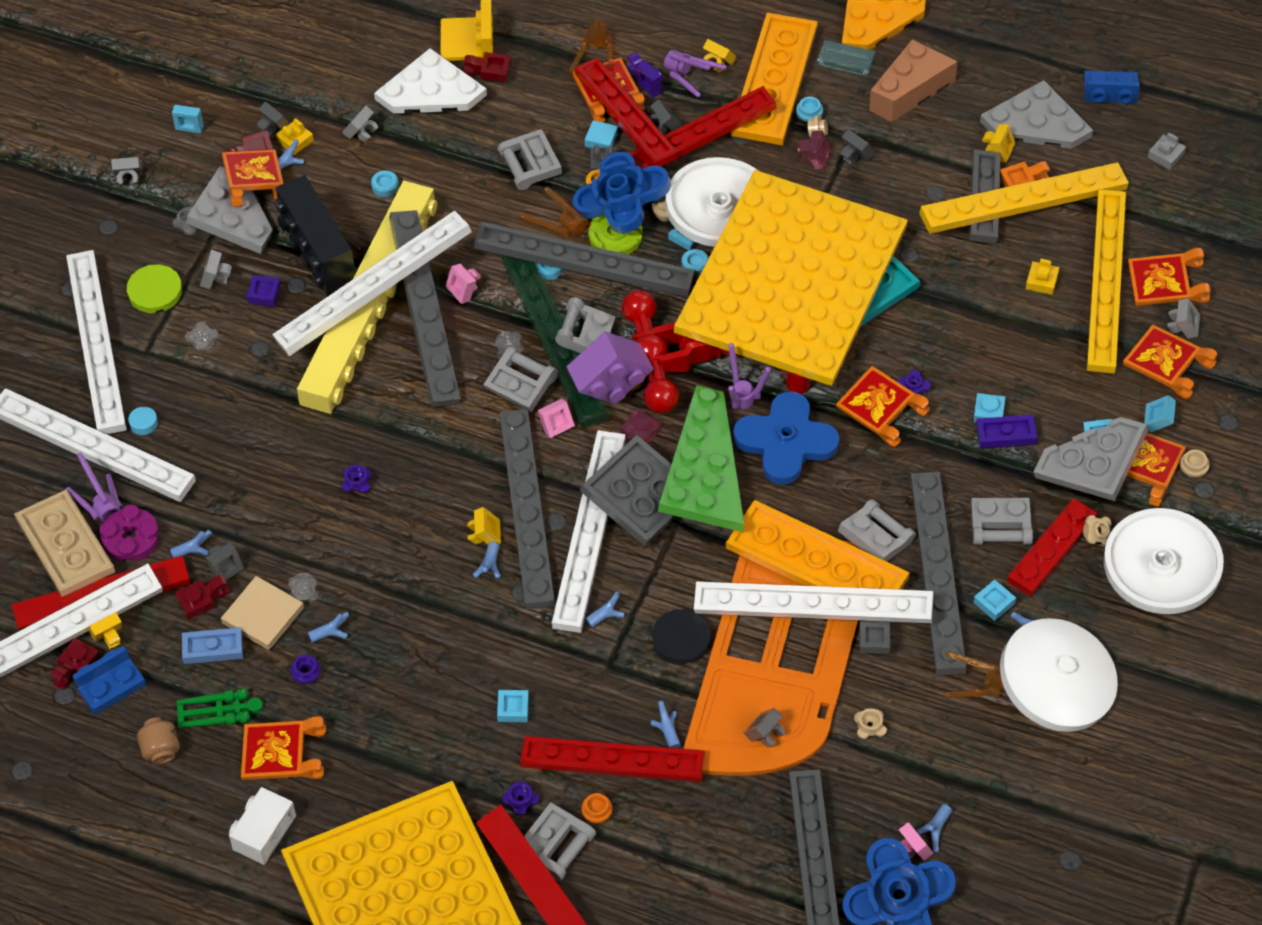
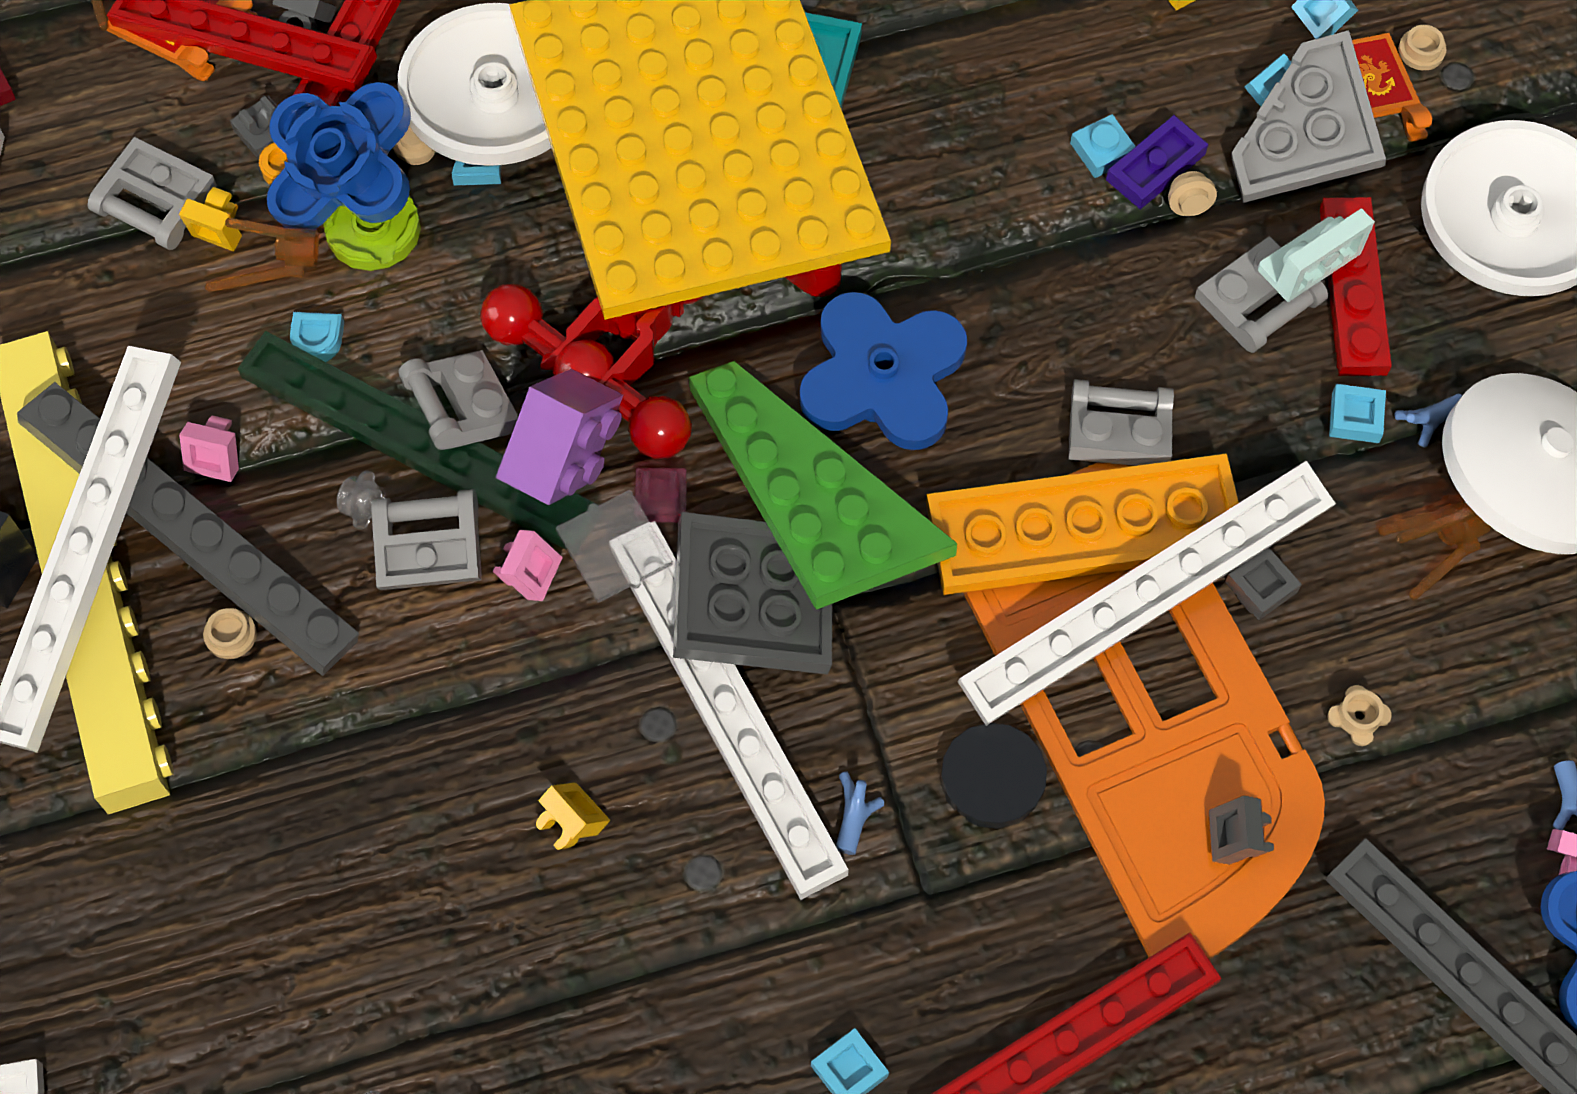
camera: 40 degrees left, 10 degrees up
(356, 472) = (299, 861): dark purple plate -> none
(407, 363) = (229, 633): none -> tan plate
(489, 561) = (620, 864): medium blue bar -> none
(527, 509) = (604, 738): dark grey plate -> none
(540, 181) = (208, 219): none -> yellow tile
(584, 259) = (364, 295): dark grey plate -> none
(597, 432) = (614, 546): none -> clear piece
(601, 134) = (227, 93): medium azure tile -> none
(667, 726) = (1097, 931): medium blue bar -> none
(695, 260) = (525, 195): medium azure tile -> none
(742, 391) = (762, 341): medium lavender plant -> none
(877, 401) = (954, 233): flag -> none
(914, 377) = (978, 188): dark purple plate -> none
(938, 571) = (1245, 421): dark grey plate -> none
(1008, 455) = (1191, 194): none -> tan plate
(1034, 514) = (1316, 253): none -> light aqua bracket
(1091, 529) = (1395, 222): tan plate -> none

